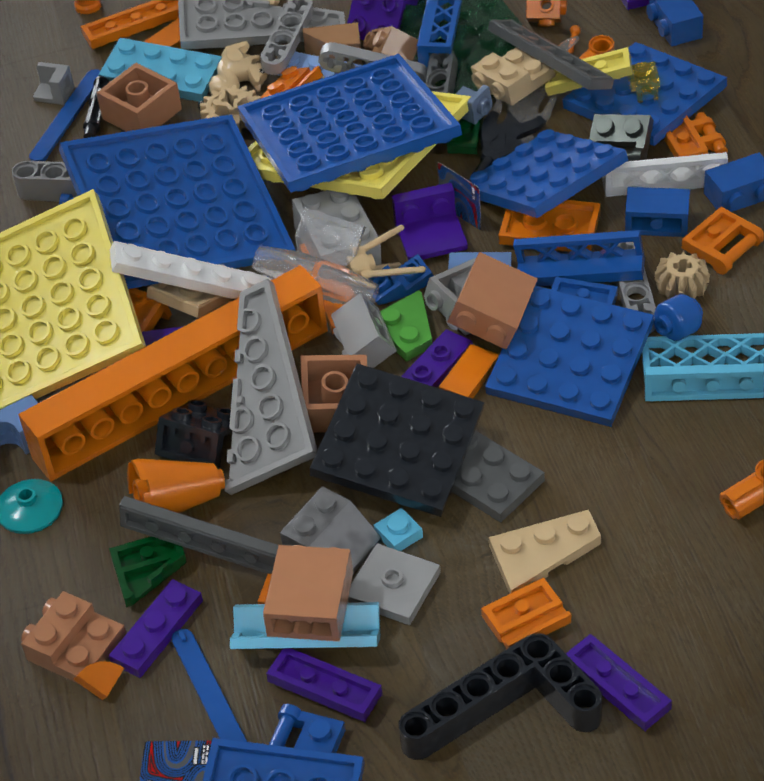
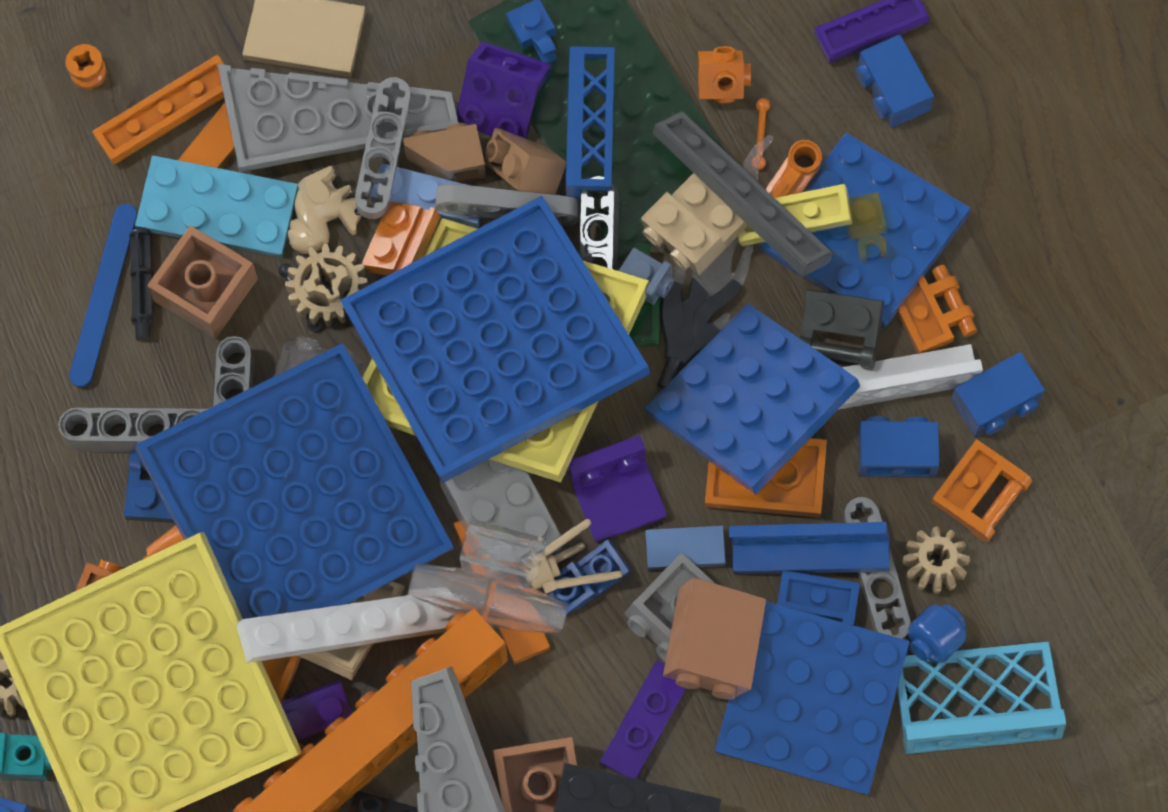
camera: 10 degrees left, 25 degrees up
(55, 83) = (75, 243): light grey panel -> none
(363, 330) = (557, 681): light grey brick -> none
(408, 326) = (604, 652): bright green wing -> none
(466, 195) = (653, 447): sticker -> none
(470, 371) = (692, 728): orange tile -> none

